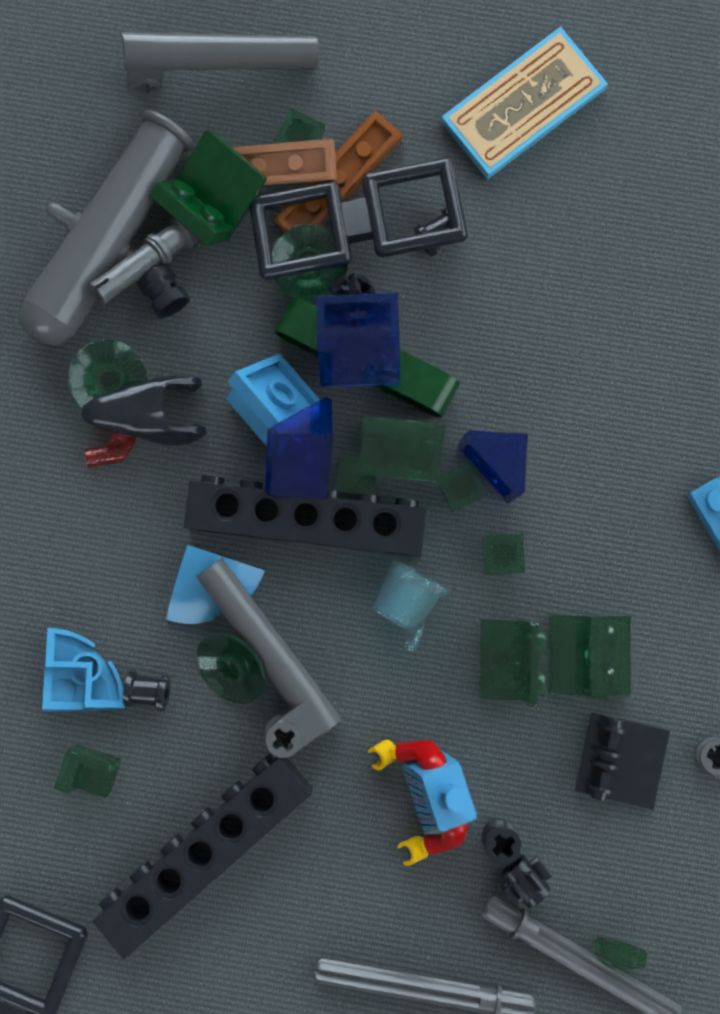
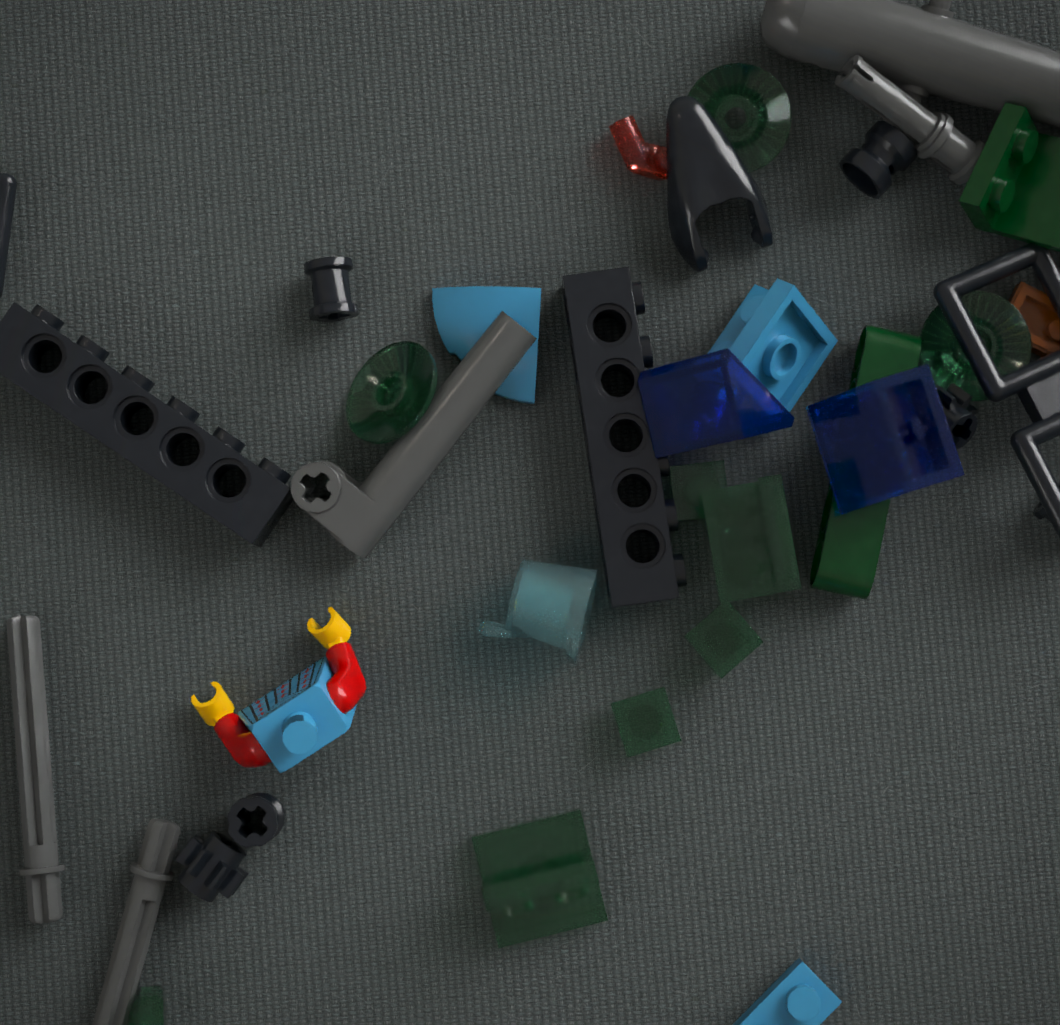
camera: 65 degrees right, 0 degrees up
(78, 676) = (326, 193): dark azure brick -> none
(87, 771) = (204, 241): clear green panel -> none
(499, 458) = (775, 678): clear blue slope -> none
(511, 660) = (502, 767): clear green bracket -> none
(622, 761) = (406, 959): black hinge -> none

